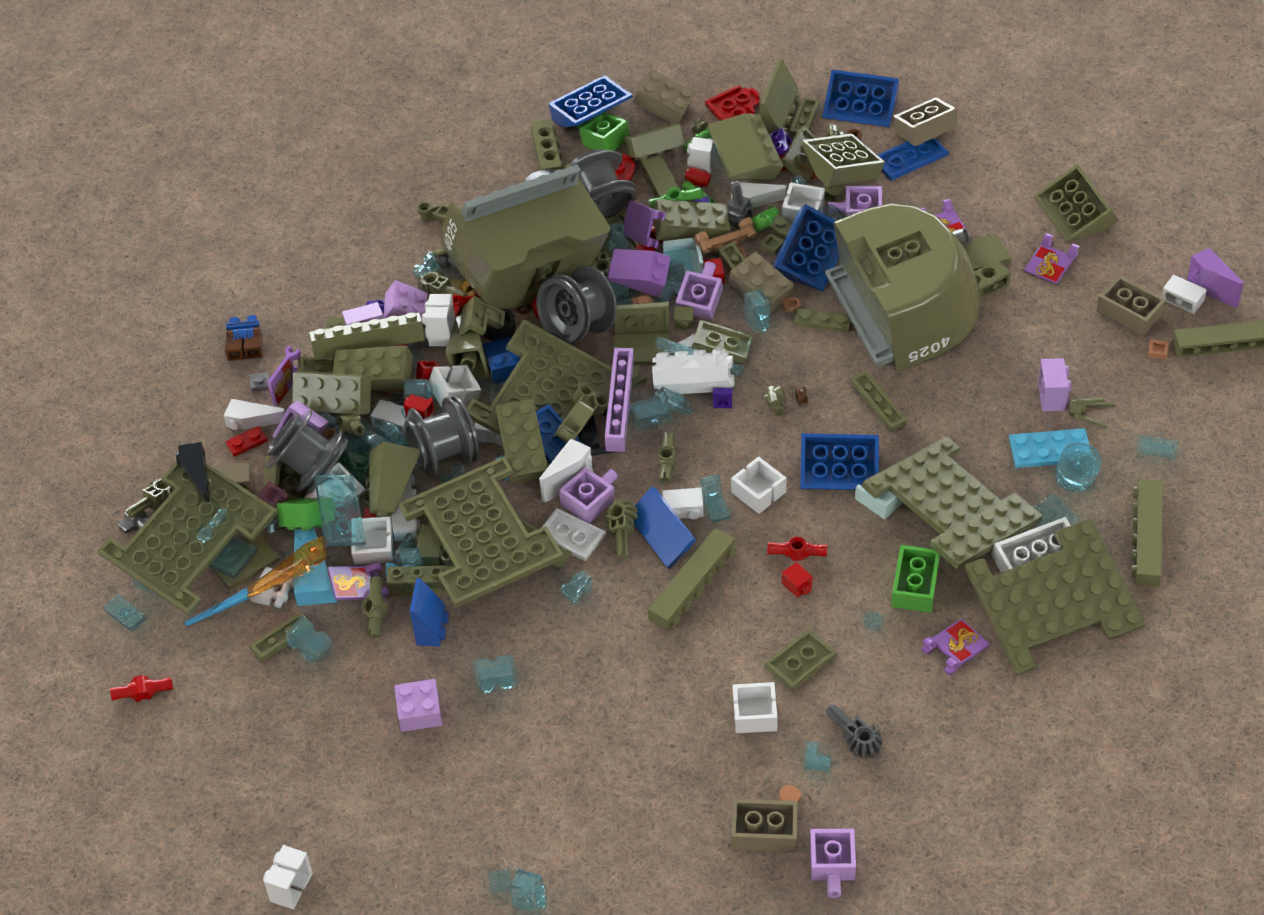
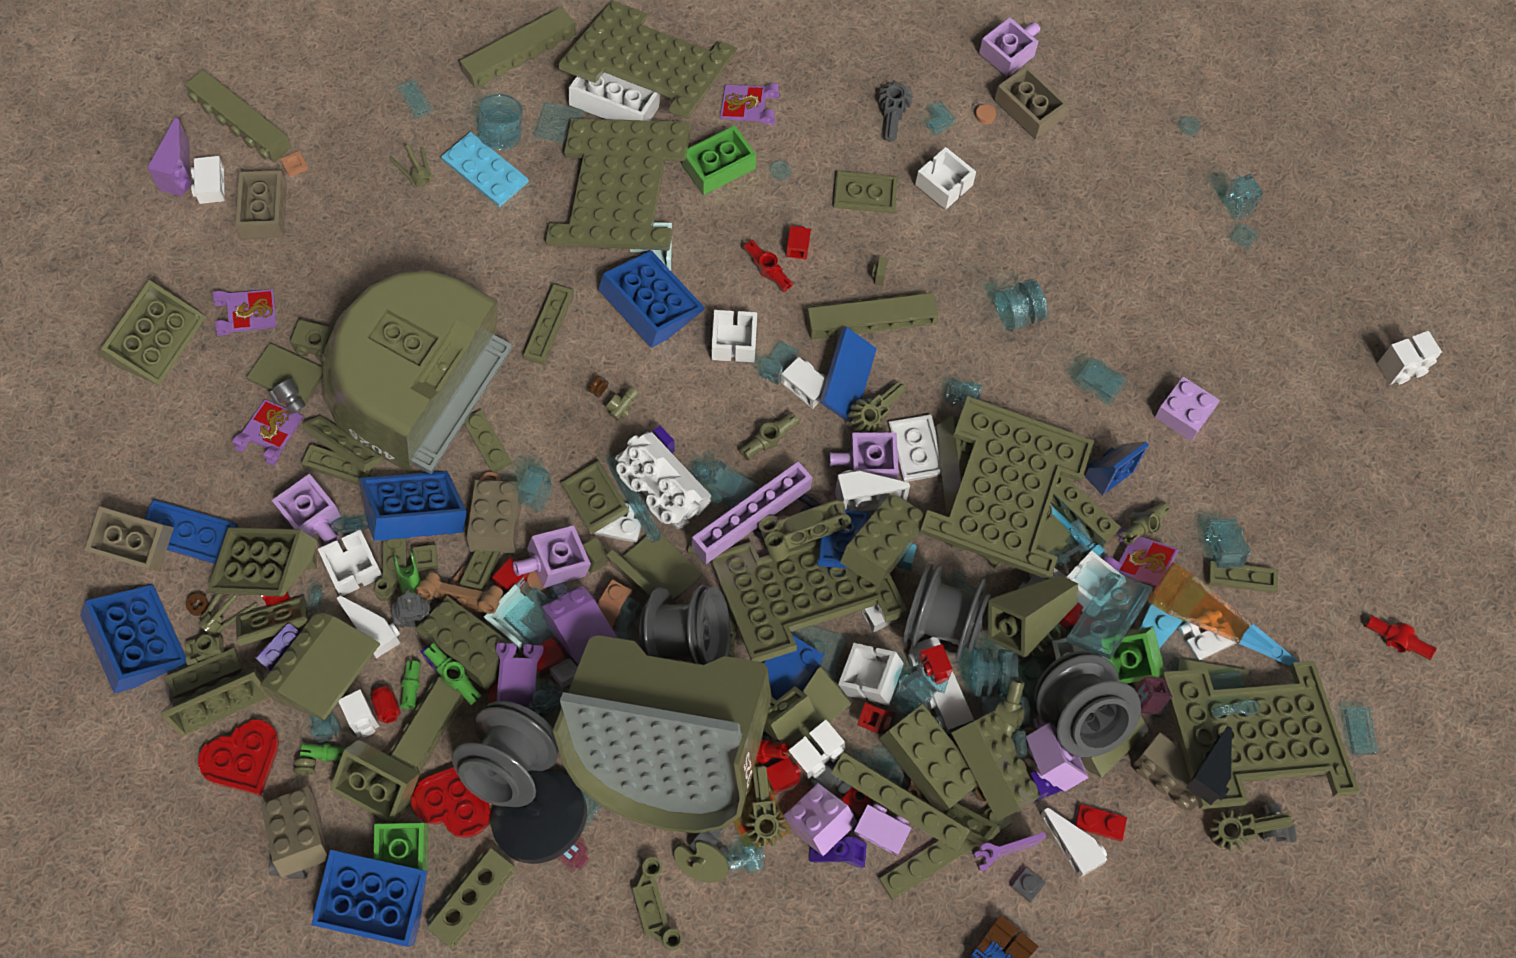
camera: 140 degrees left, 15 degrees up
(601, 664) = (1023, 303): none -> clear light blue wheel
(722, 611) = (879, 271): none -> olive plate
(820, 123) = (203, 648): none -> olive plate
(1054, 384) = (418, 196): lavender brick -> none

